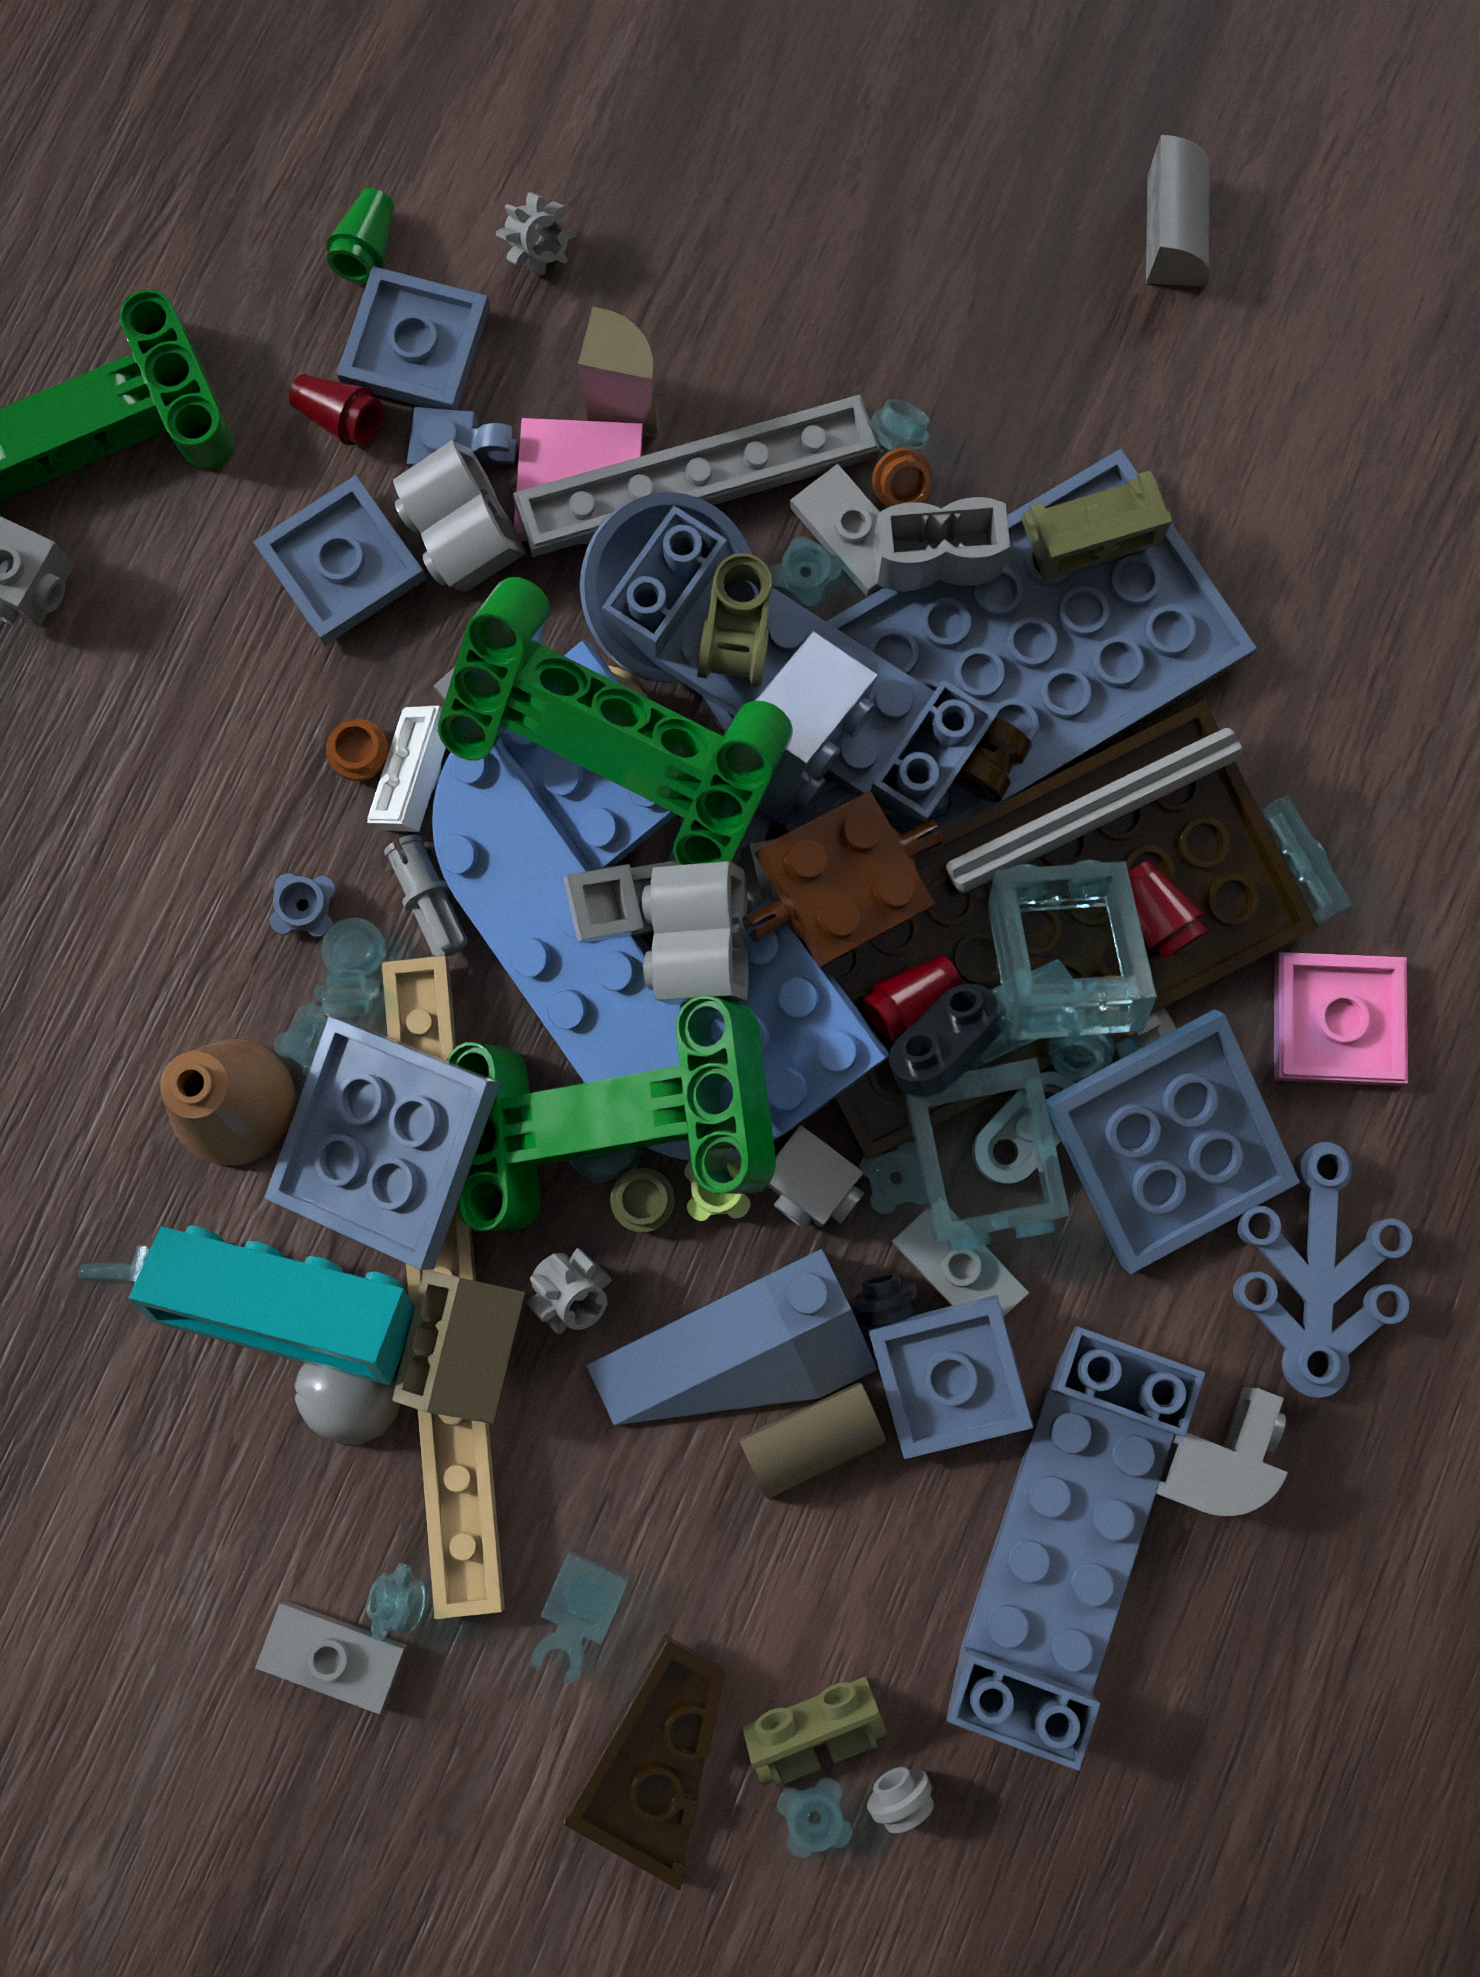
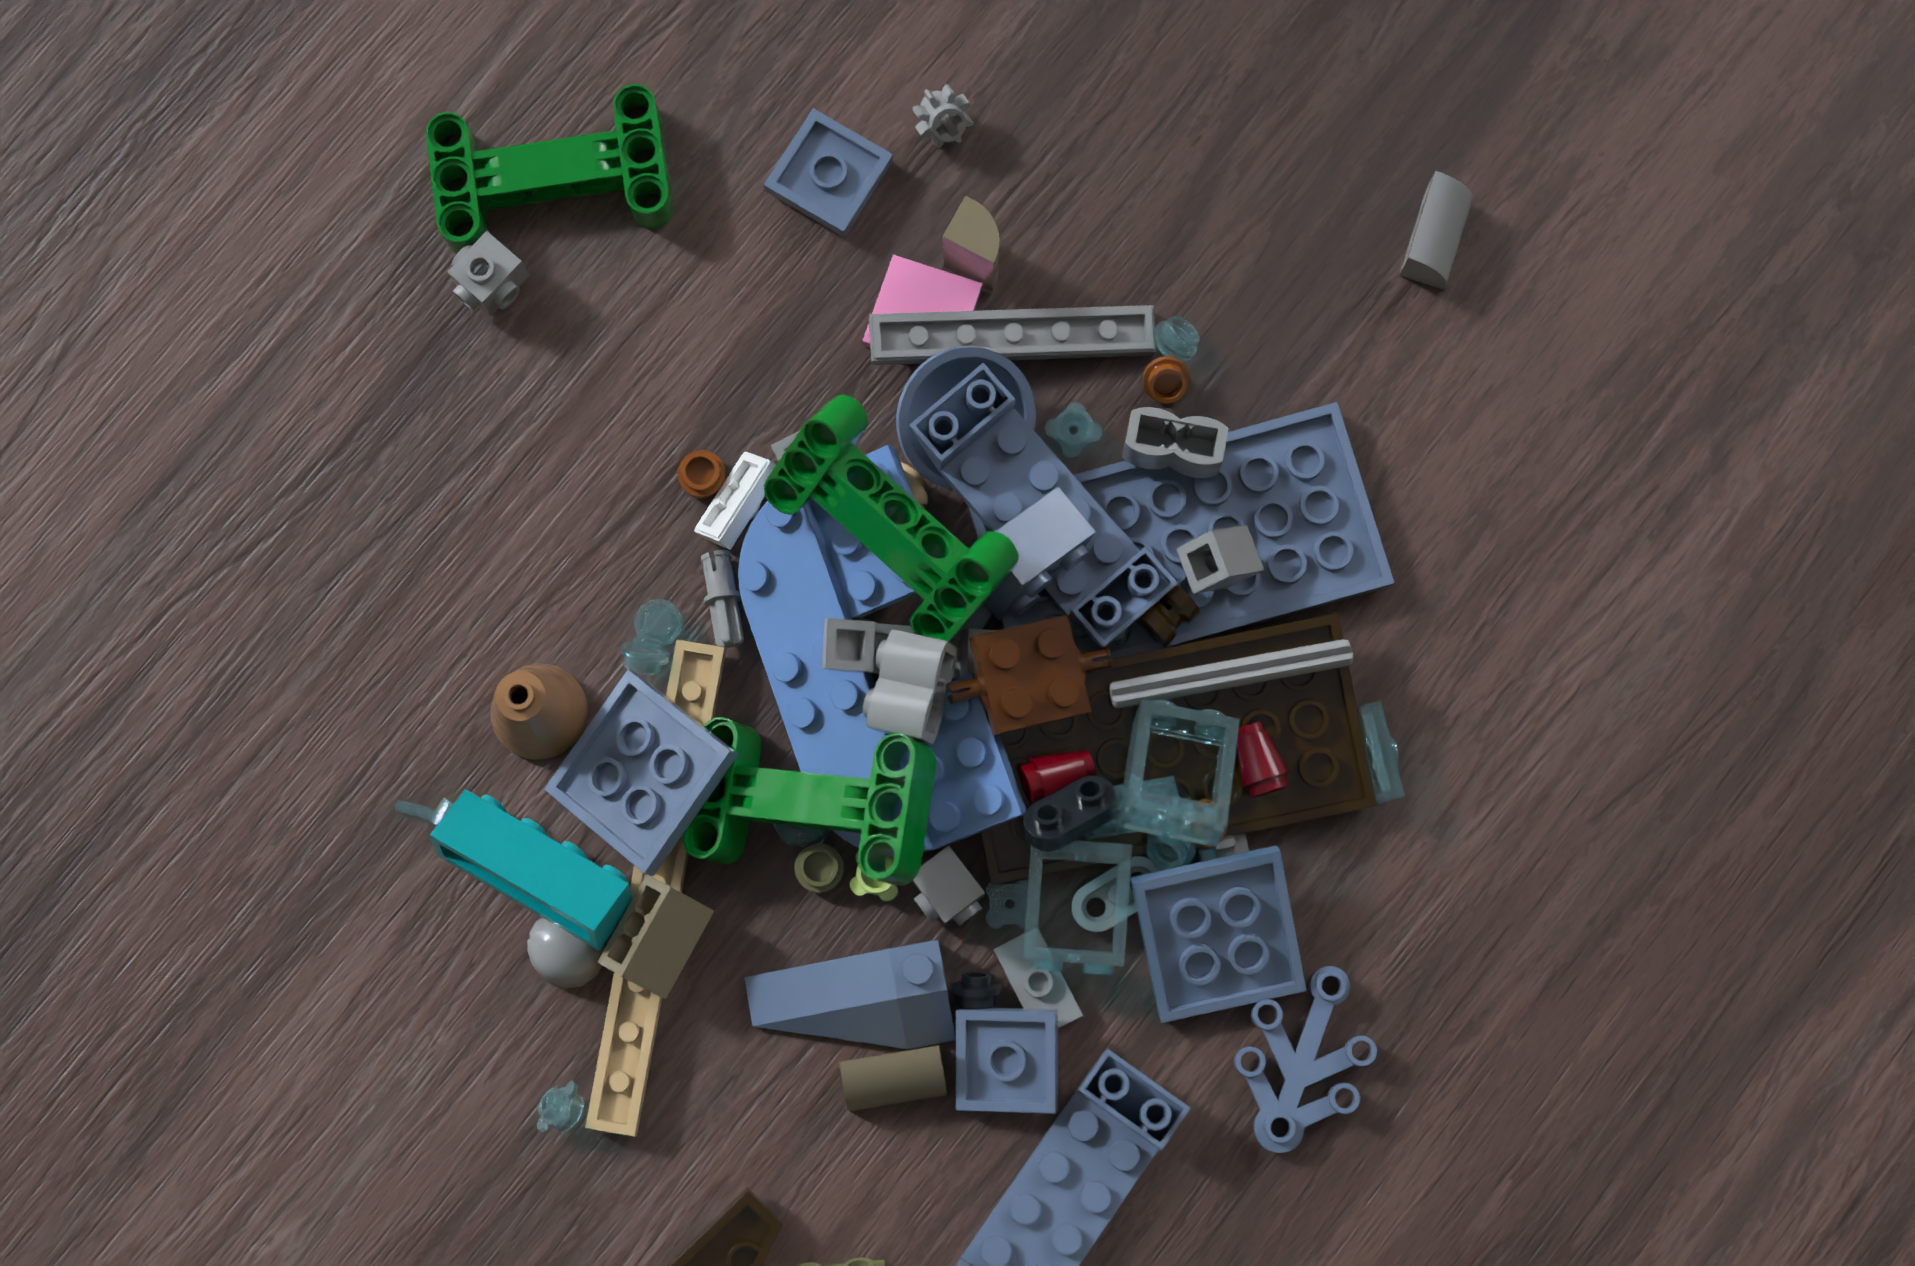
camera: 15 degrees right, 0 degrees up
(293, 889) = (622, 568): sand blue plate -> none
(294, 1042) = (596, 680): clear light blue plate -> none
(331, 1657) = (503, 1134): light grey plate -> none
(339, 408) = (758, 210): dark red cone -> none
(340, 560) = (727, 327): sand blue plate -> none
(361, 237) = (811, 81): green cone -> none
(437, 427) = (835, 257): sand blue plate -> none
(457, 517) = (823, 320): light grey brick -> none
(569, 1291) = (746, 919): light grey gear -> none
(582, 1607) = (693, 1149): clear light blue plate -> none
(736, 631) = (1003, 465): olive piece -> none
(842, 523) = (1111, 399): light grey plate -> none
(1038, 672) = (1220, 559): none -> light grey brick
(1097, 526) = (1298, 458): olive hinge -> none
(1230, 1476) = (1187, 1190): light grey brick -> none
(1340, 1019) = (1375, 878): bright pink tile -> none

